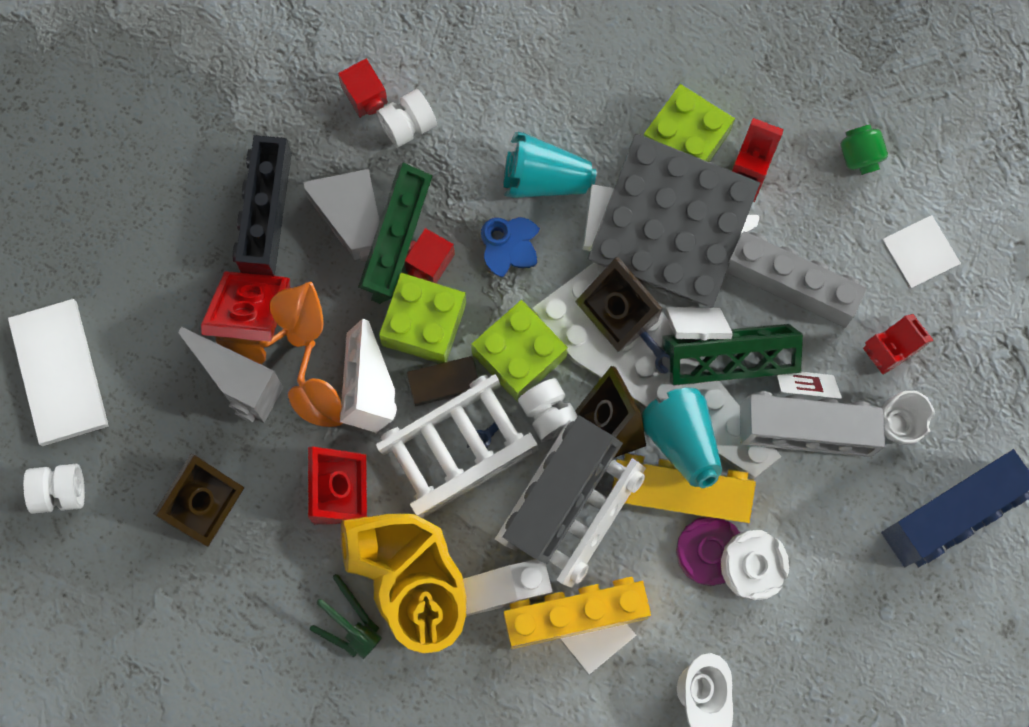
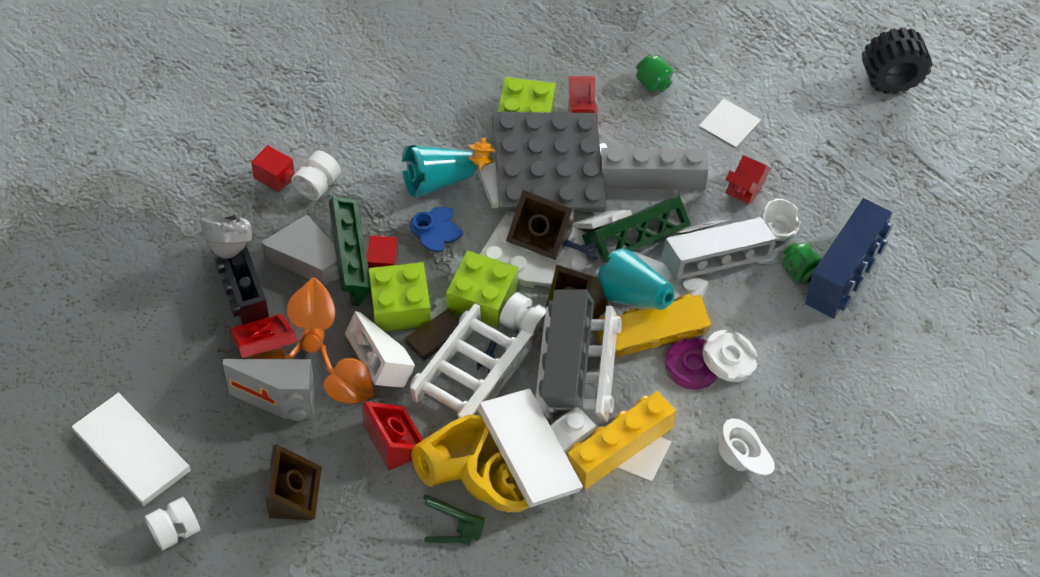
camera: 25 degrees left, 20 degrees down
(256, 166) = (225, 236): none -> light grey hair
(462, 588) = (529, 447): none -> white tile
(600, 178) = (481, 153): none -> light orange wheel
(902, 484) = (800, 261): none -> green head

